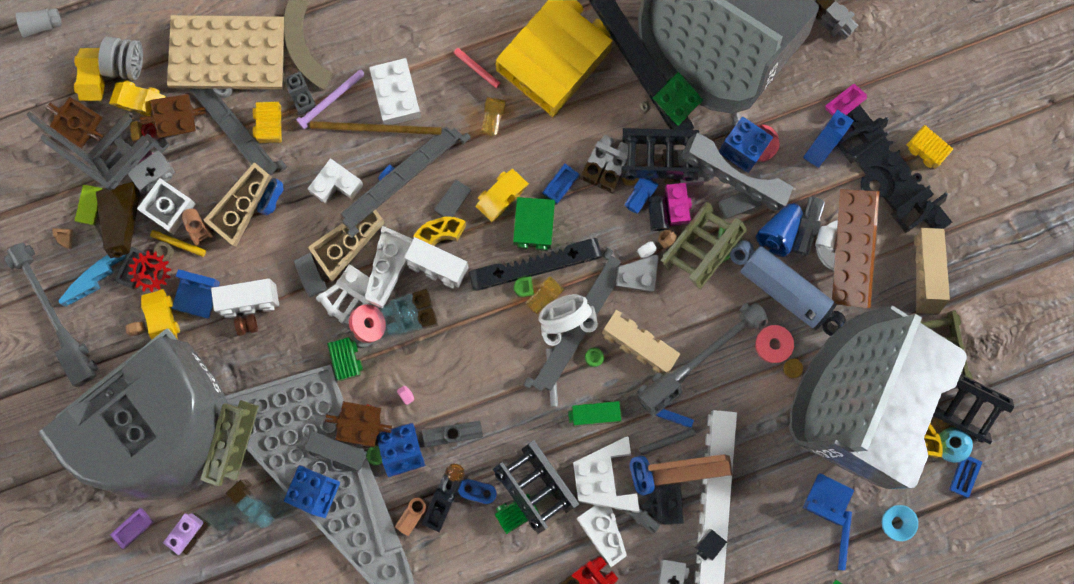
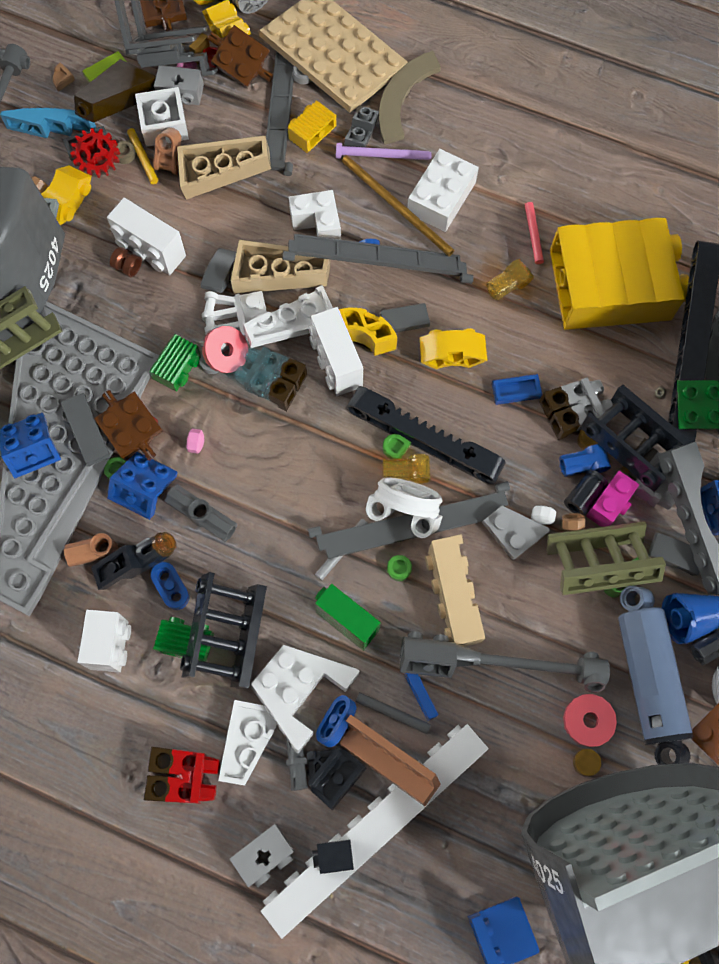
camera: 45 degrees right, 10 degrees down
(194, 294) = (107, 198): blue bracket -> none
(268, 200) = (261, 180): blue plate -> none
(475, 556) = (104, 641): none -> white brick
(534, 223) = (459, 398): green brick -> none

